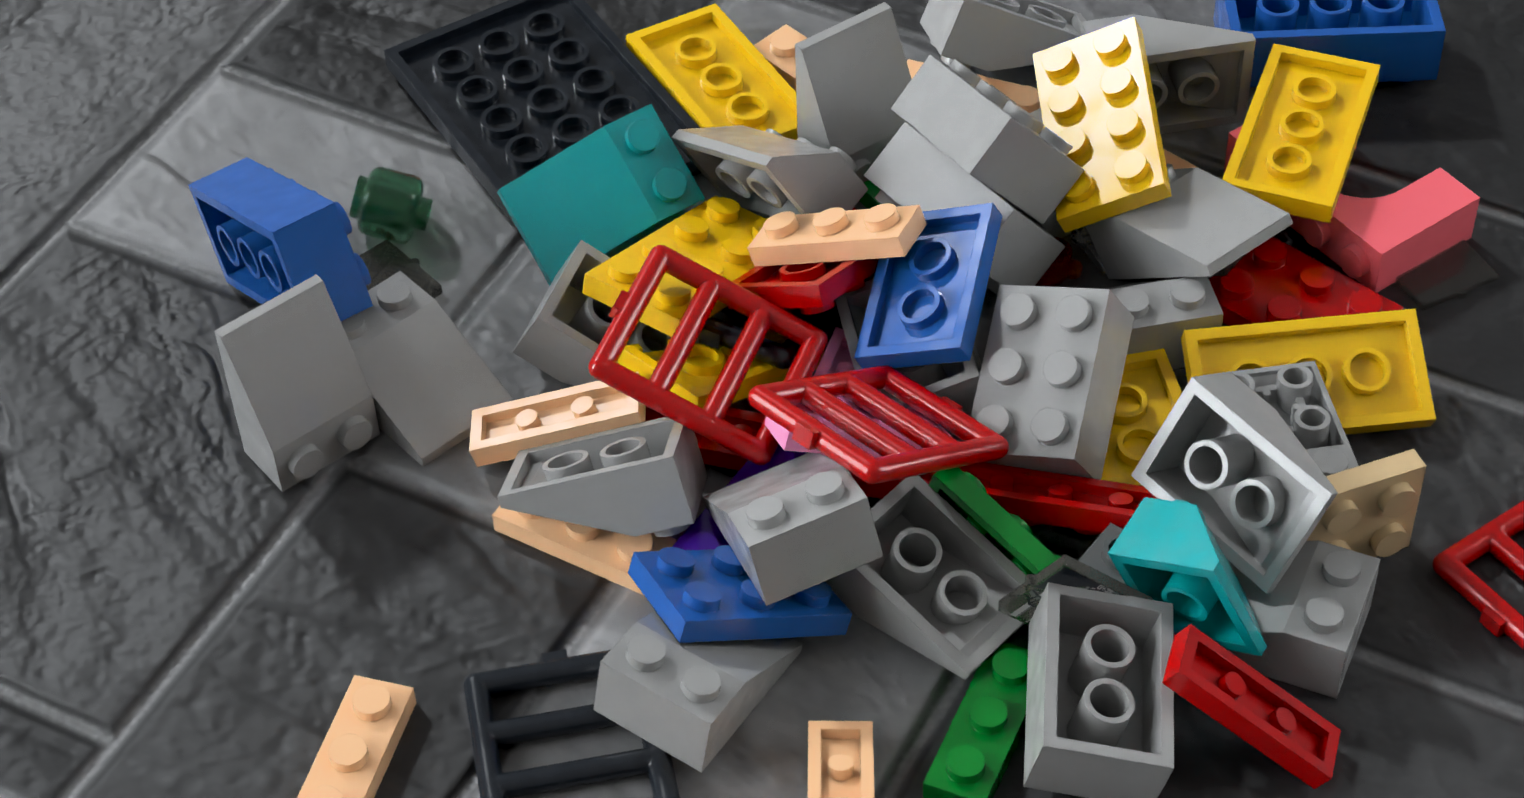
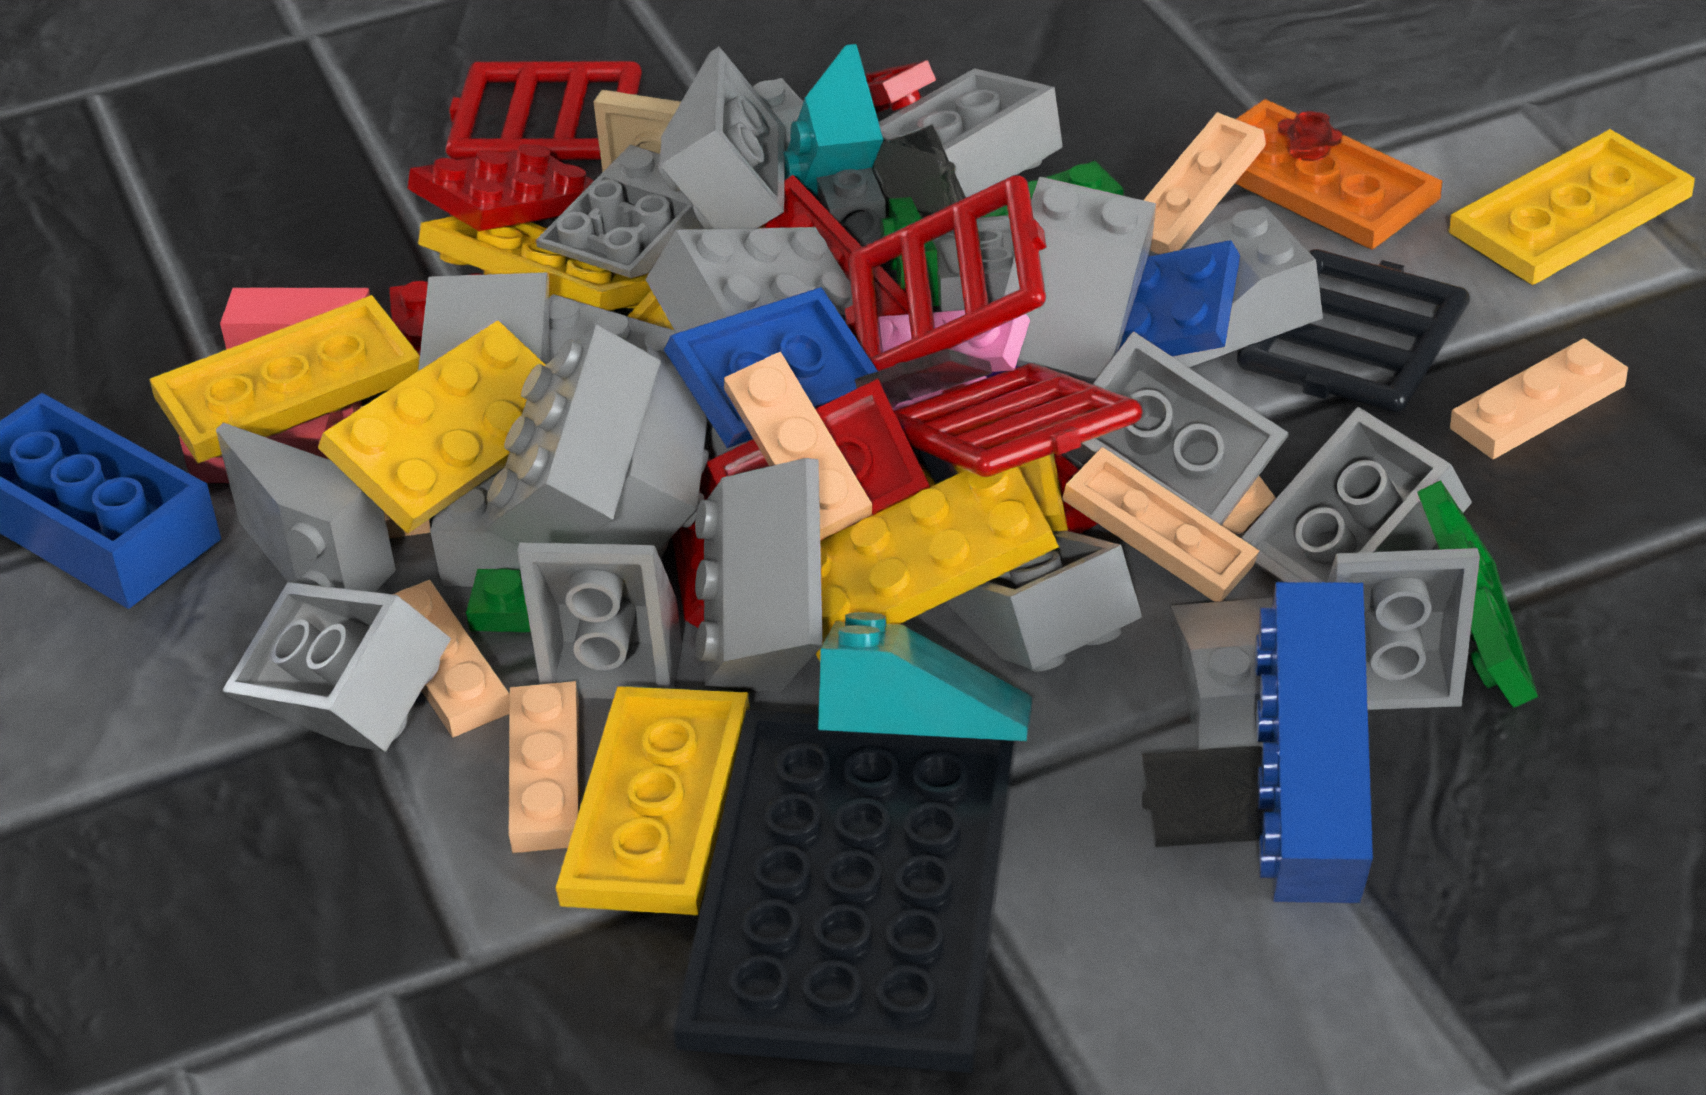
camera: 140 degrees left, 5 degrees down
(265, 490) = (1499, 651): none -> green wing
(390, 205) = (1131, 843): clear green head -> none
(414, 531) = (1351, 500): none -> light grey slope
(811, 338) = (927, 374): none -> clear smoke piece
(1448, 409) = (500, 187): none -> red plate

